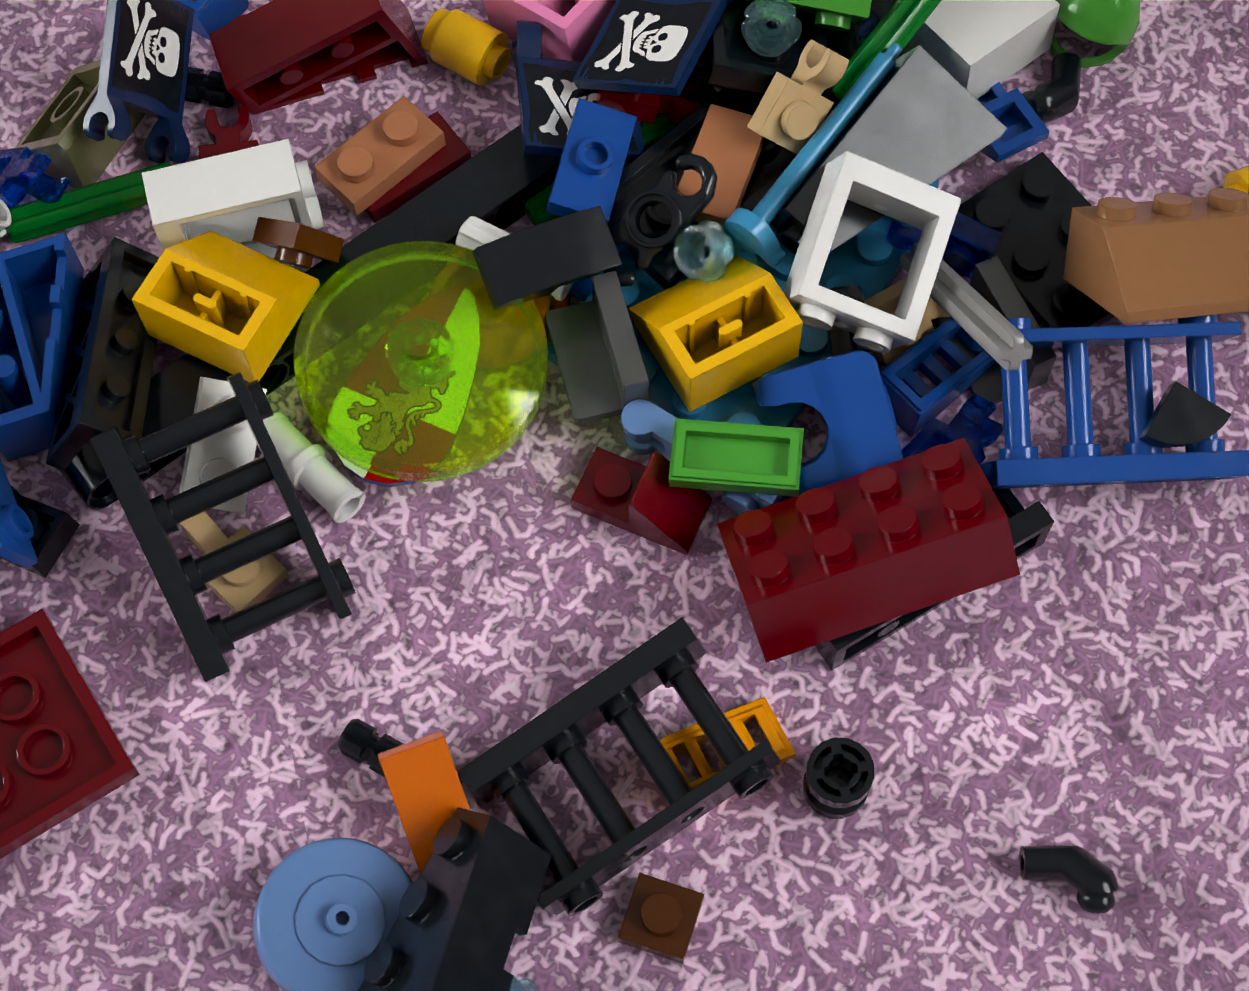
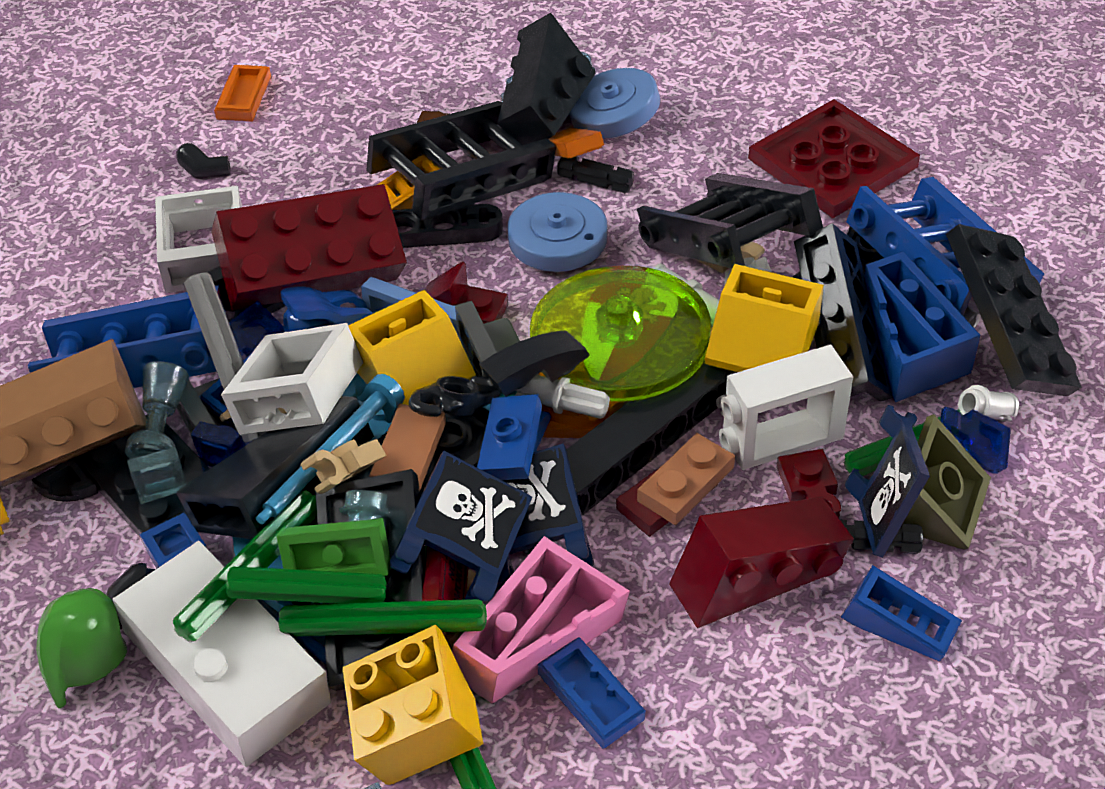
camera: 175 degrees right, 20 degrees down
(296, 242) = (713, 377): reddish brown plate -> none
(466, 46) = (638, 572): yellow brick -> none
(480, 612) = (557, 231): none -> medium blue wheel
(691, 246) = (415, 377): clear light blue plate -> none
(736, 457) = (389, 285): bright green tile -> none
(742, 646) = (425, 234): none -> black beam
(837, 792) = (332, 172): black wheel -> none
(1037, 185) = (157, 474): none -> clear light blue tile
(1046, 595) = (182, 214): none -> white window
(1050, 286) = (161, 393): none -> clear light blue piece
(1182, 419) = (83, 328): black tile -> none

